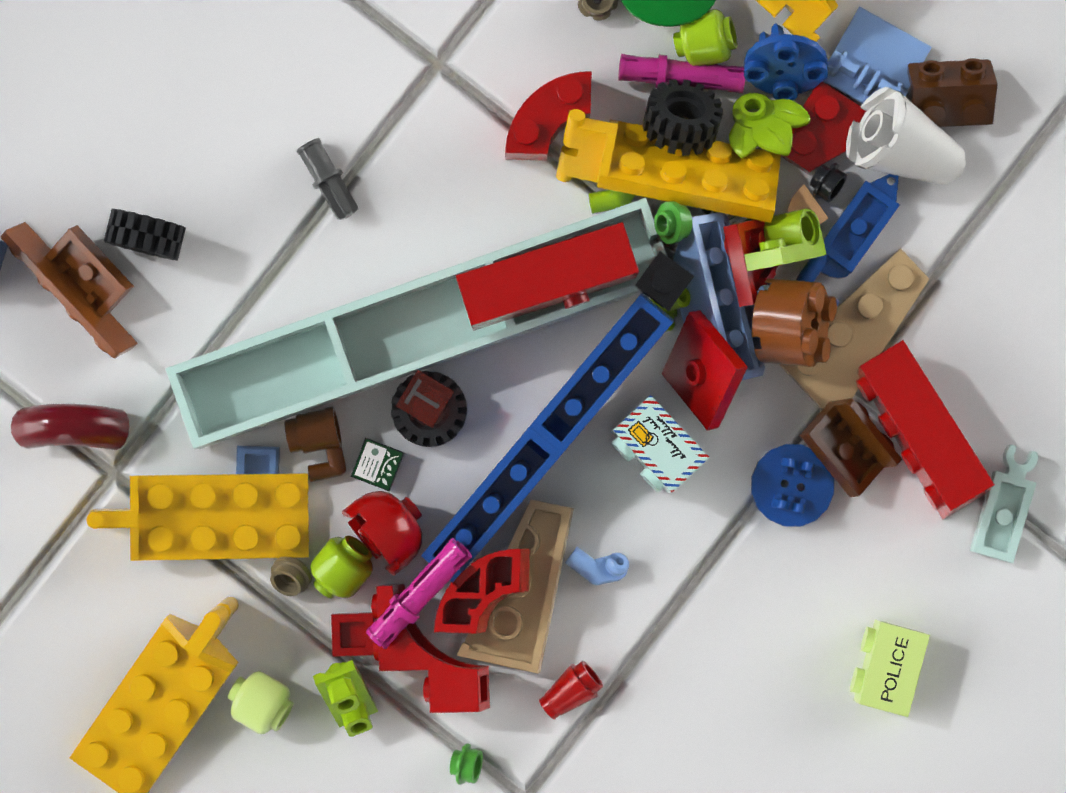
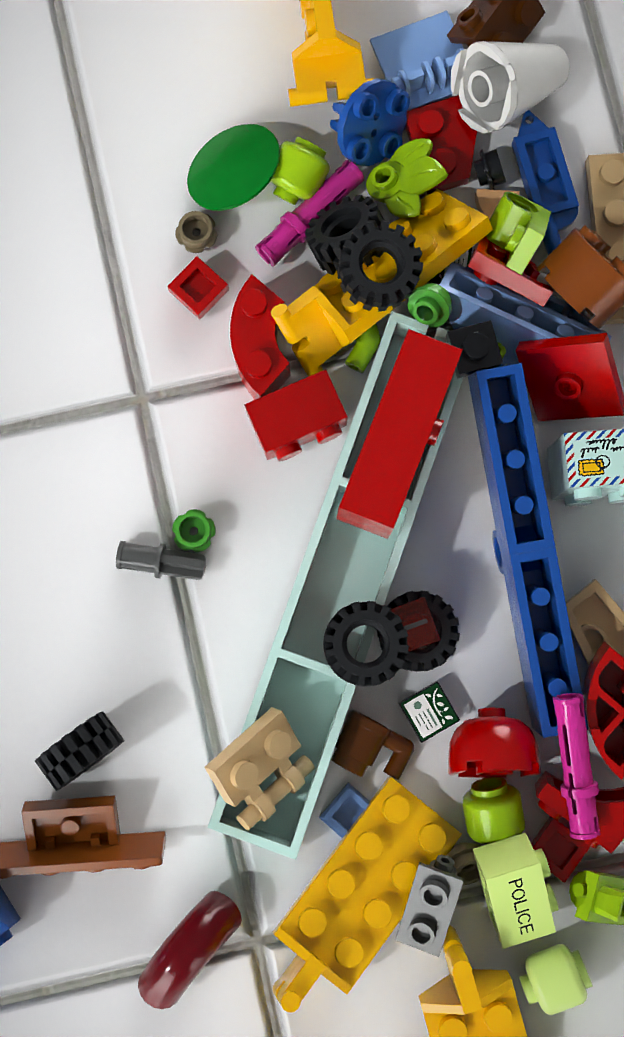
camera: 50 degrees left, 5 degrees down
(238, 361) = (252, 759): none -> tan plate
(238, 571) = (430, 905): none -> hinge
(297, 623) = (516, 889): none -> yellowish green brick
(364, 355) = (393, 635): none -> black tyre
(366, 174) = (182, 527): none -> bright green plate
(514, 191) = (297, 416): none -> red brick
(554, 37) = (198, 287): none -> red plate
(674, 137) = (388, 241): none -> black tyre

